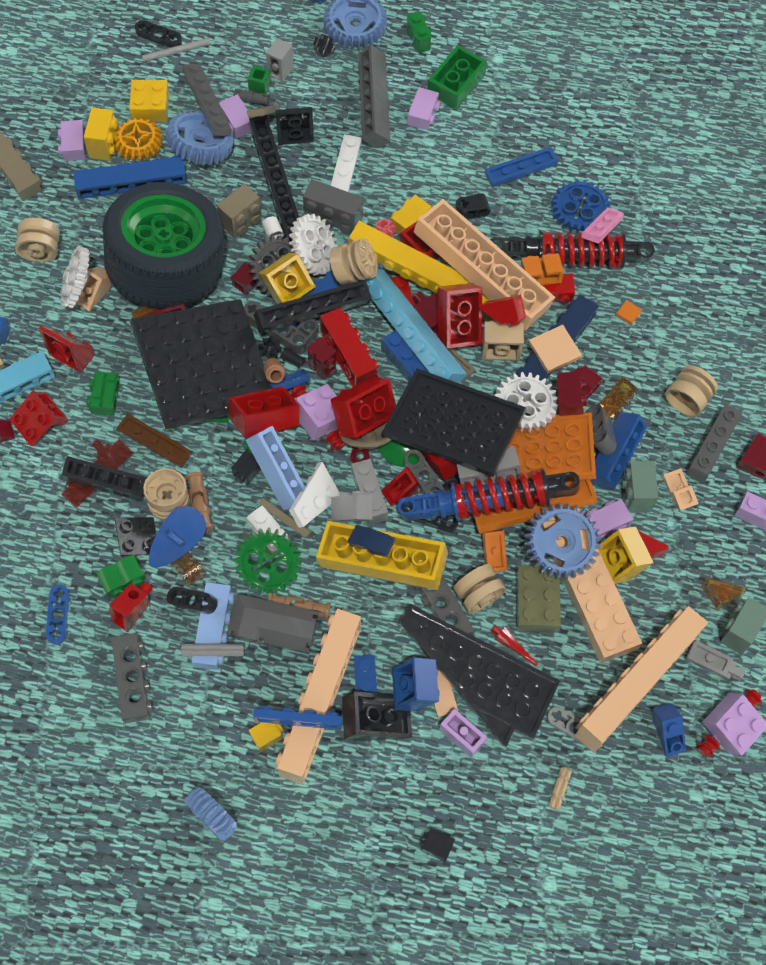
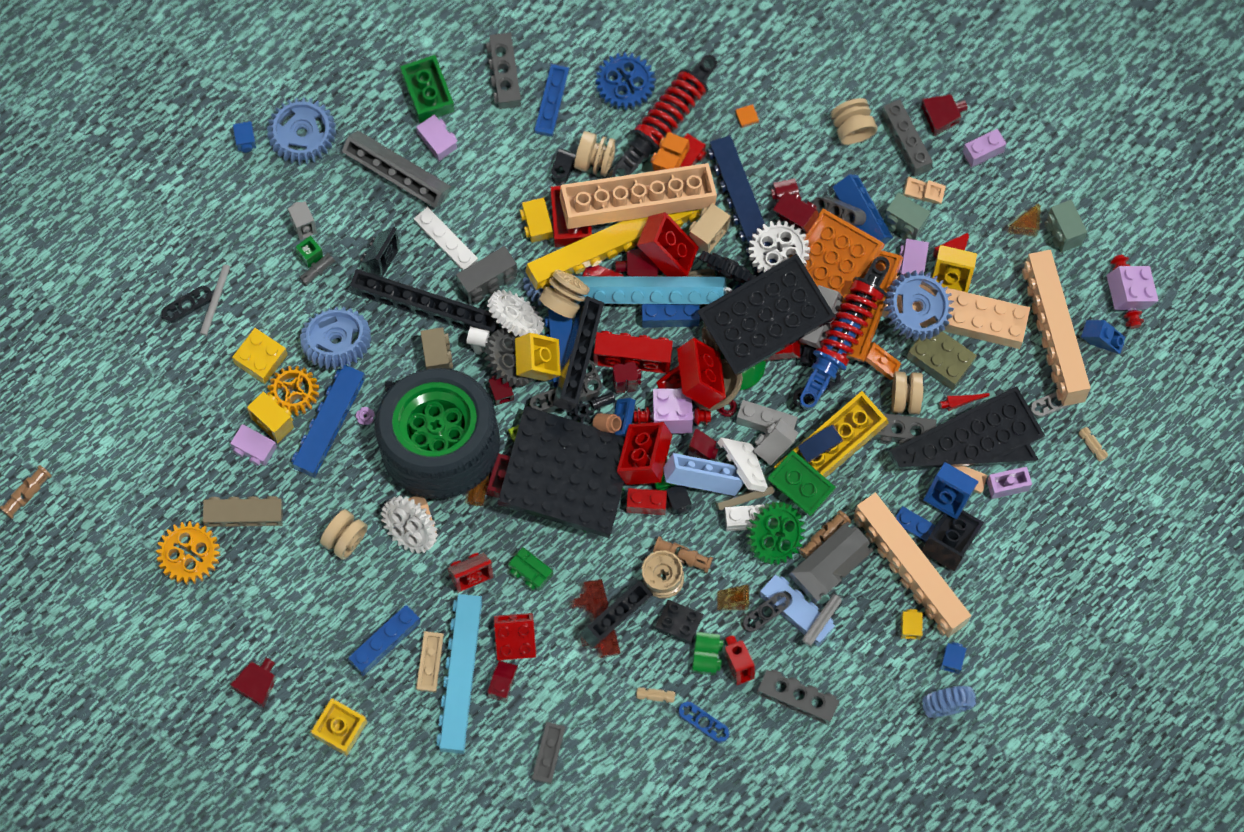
camera: 55 degrees left, 5 degrees up
(57, 560) = (655, 695): none -> tan axle
(154, 440) = (600, 557): reddish brown tile -> none
(177, 536) = (703, 589): blue shield -> none
(207, 100) = (298, 307): dark grey plate -> none
(225, 442) = (646, 501): none -> red brick
(236, 115) = (329, 294): lavender brick -> none
(260, 791) = (953, 657): none -> blue brick
(262, 111) = (349, 268): dark tan tile -> none
(289, 717) = (922, 593): blue plate -> none
(305, 454) = (702, 446): none -> dark red slope
(324, 44) = (308, 173): black gear -> none
(326, 551) = (801, 483): none -> green tile
(386, 227) = (533, 244): coral gear -> none
(400, 487) = (779, 393): red slope -> none
(418, 32) = (358, 87): green brick -> none
(422, 467) = (791, 367): dark grey beam -> none
(437, 844) = (1077, 557): black brick -> none
(476, 368) = (726, 267): none -> black gear
(498, 217) = (595, 153): none -> tan wheel
(505, 310) = (695, 209): red slope -> none
(517, 120) = (503, 44): none -> dark grey brick
(555, 349) = (746, 195): light nougat tile -> none
(602, 225) = (664, 79): bright pink tile -> none
(619, 397) = (818, 178): clear orange slope -> none
(714, 661) = (1077, 266): light grey hinge -> none

